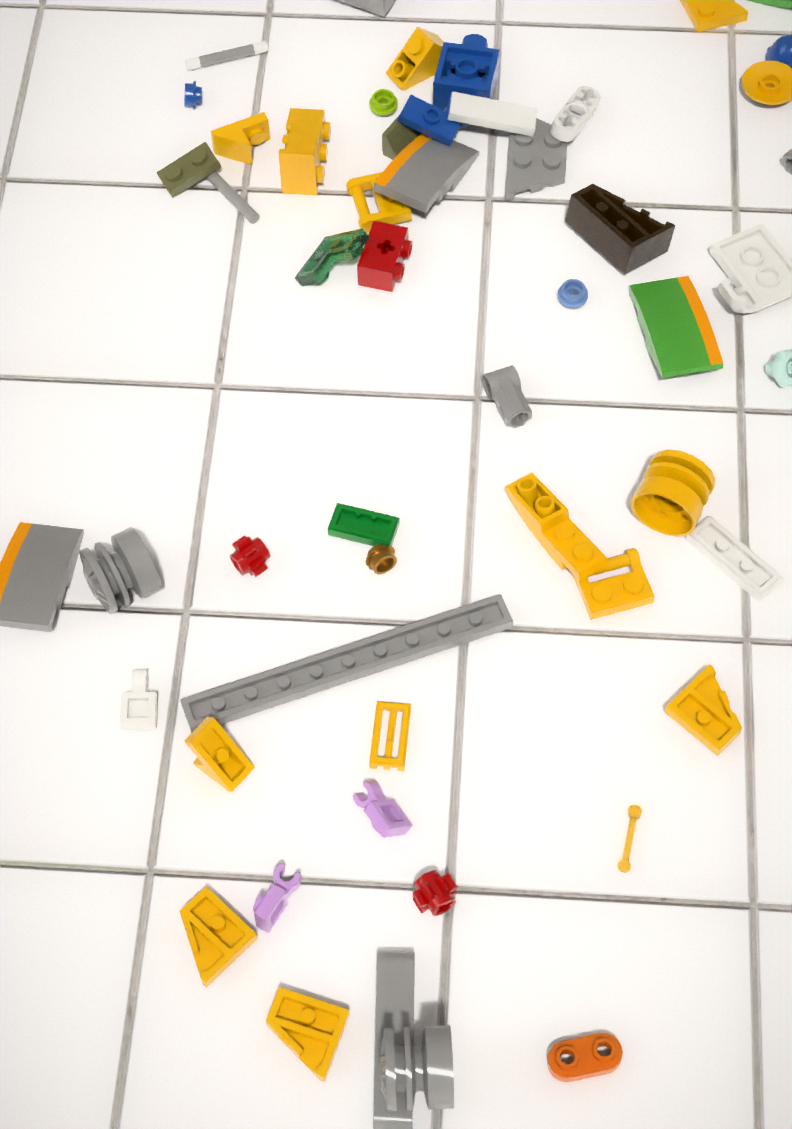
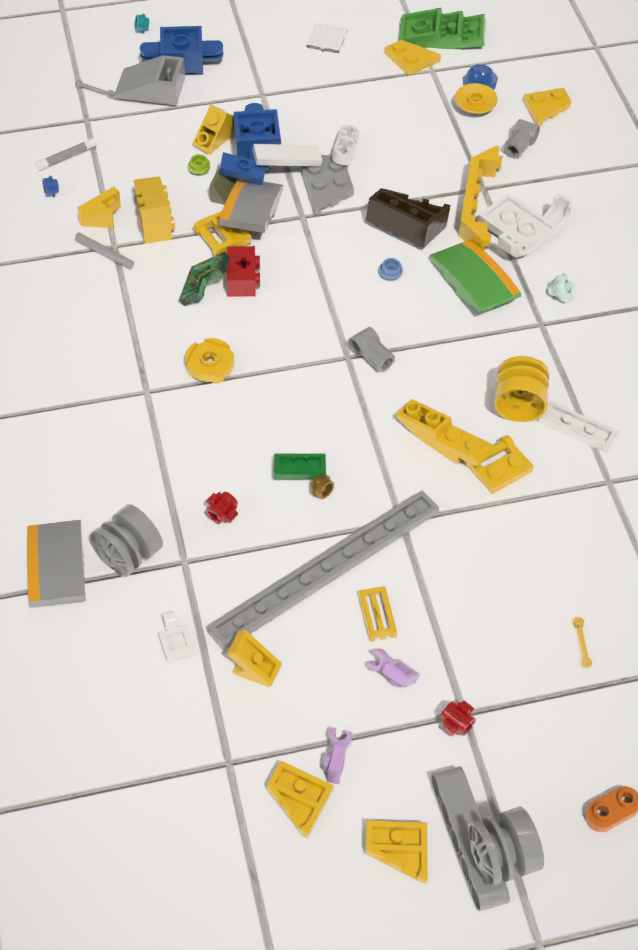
camera: 20 degrees left, 5 degrees down
(188, 169) = (68, 239): olive plate -> none
(304, 379) = (209, 371): none -> yellow plate
(706, 712) = (603, 538): yellow wing -> none
(745, 176) = (480, 165): none -> yellow slope

